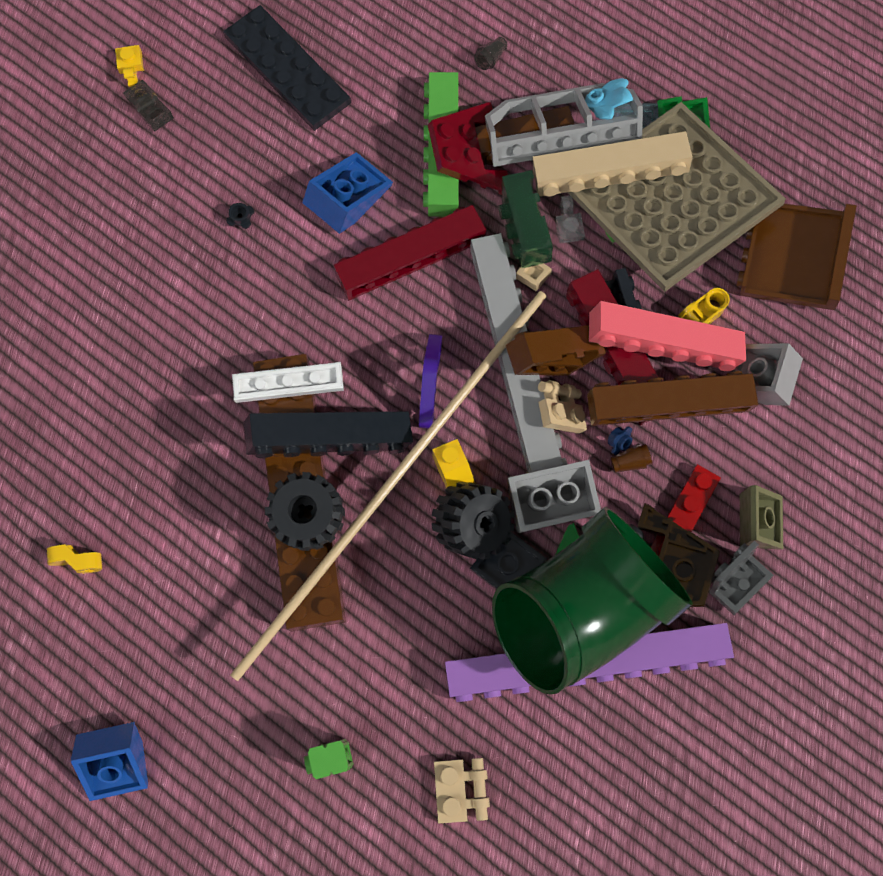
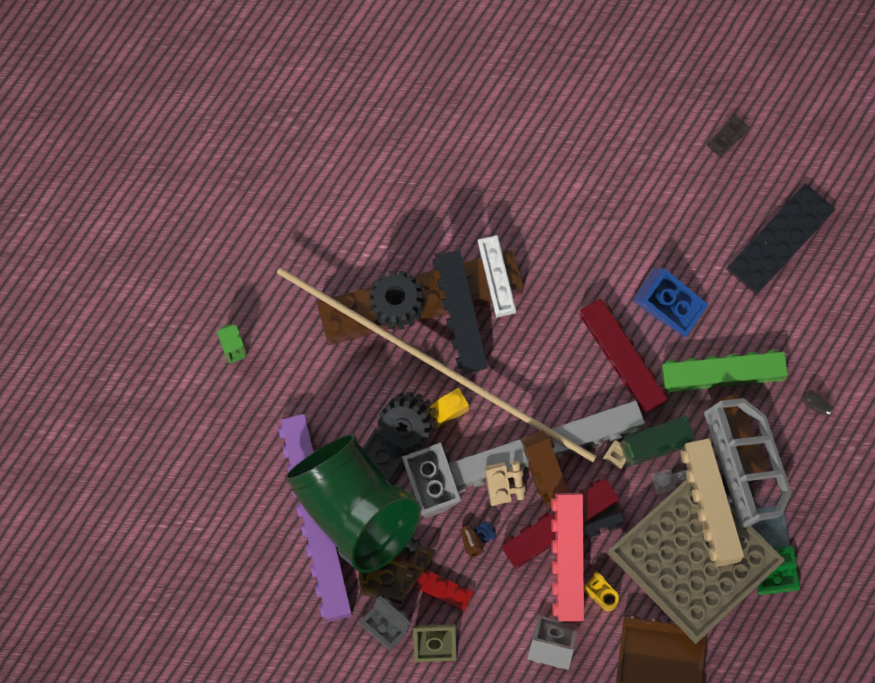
camera: 85 degrees right, 0 degrees up
(67, 555) = (353, 150): yellow piece -> none
(110, 761) = (218, 200): blue slope -> none
(129, 62) = (766, 114): yellow plate -> none
(240, 209) = (643, 218): black plate -> none
(429, 380) = (519, 378): dark purple beam -> none
(450, 790) = (216, 431): tan plate -> none
(458, 148) = (714, 381): dark red wing -> none
(605, 99) = (771, 494): medium azure plate -> none
(671, 399) = (516, 561): reddish brown brick -> none

